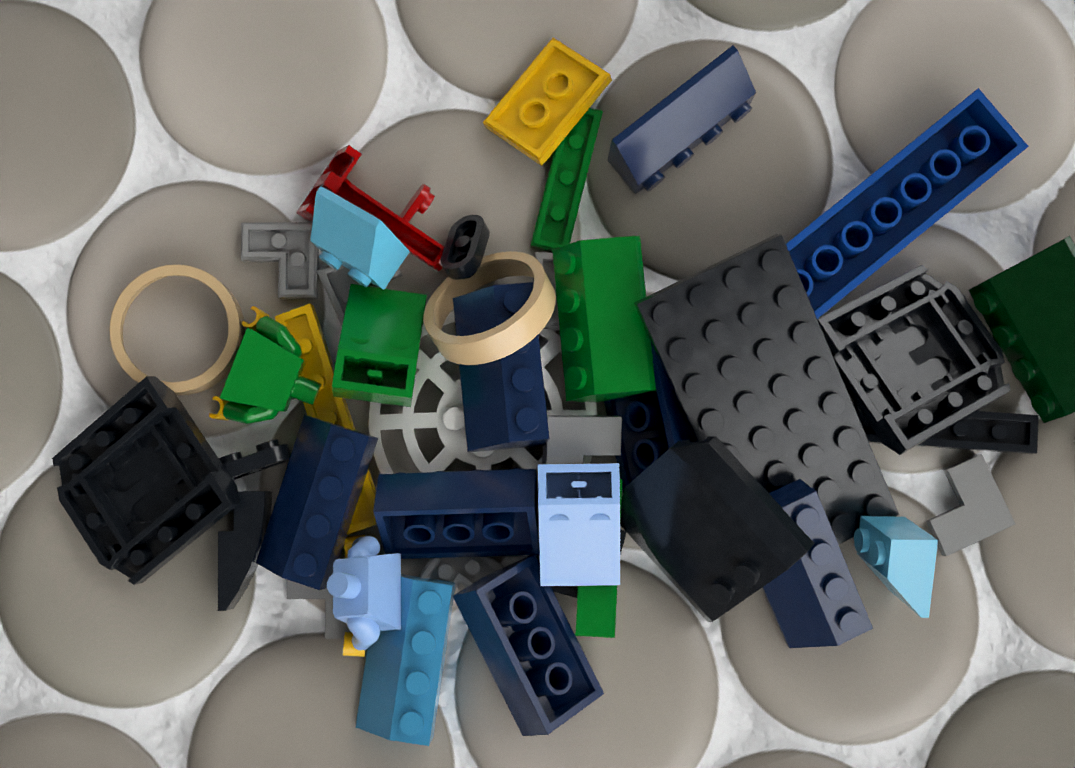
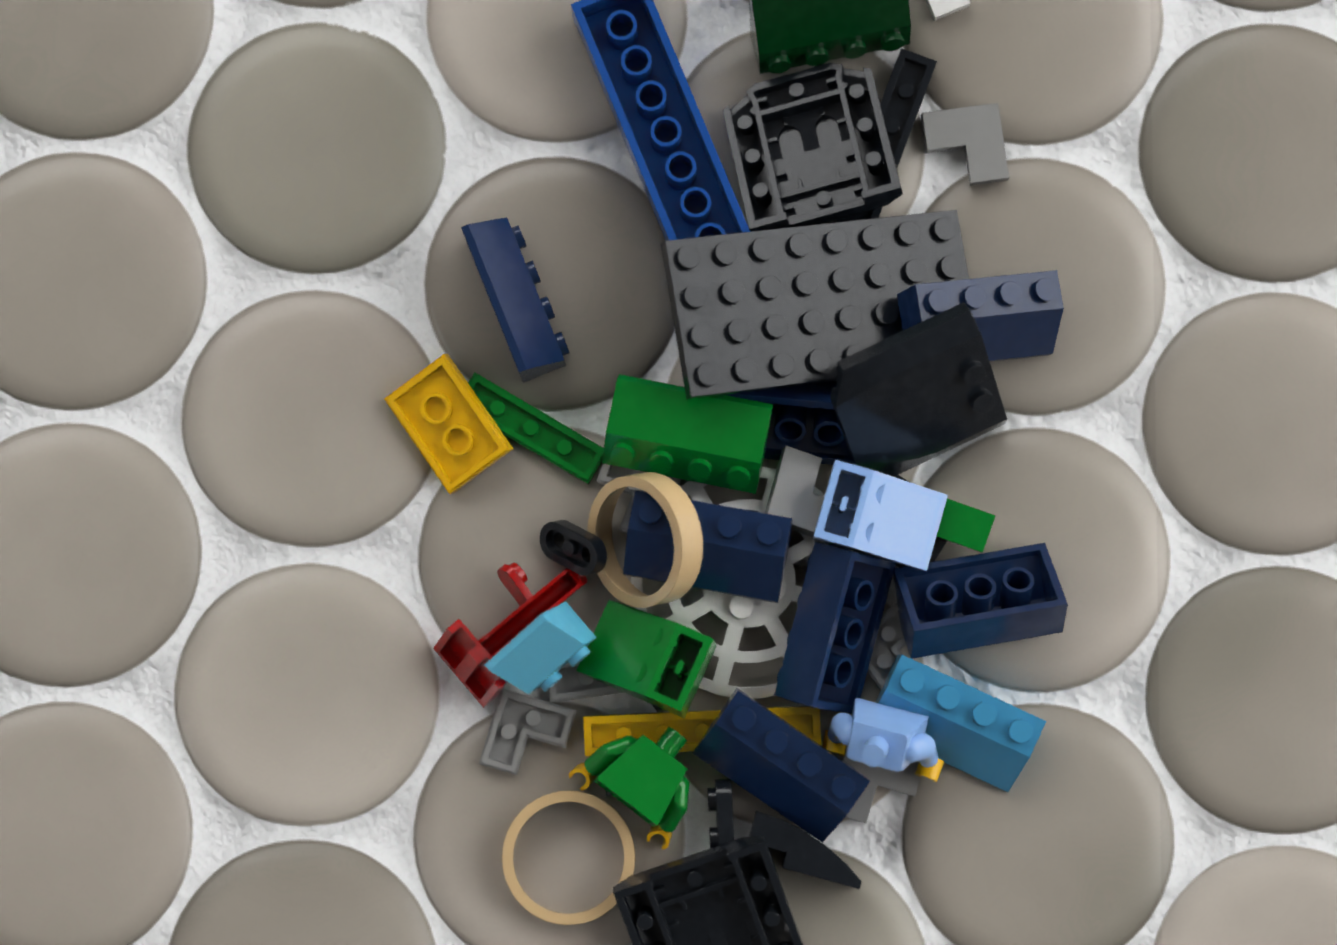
camera: 70 degrees left, 0 degrees up
(900, 557) = (996, 224): medium azure slope -> none

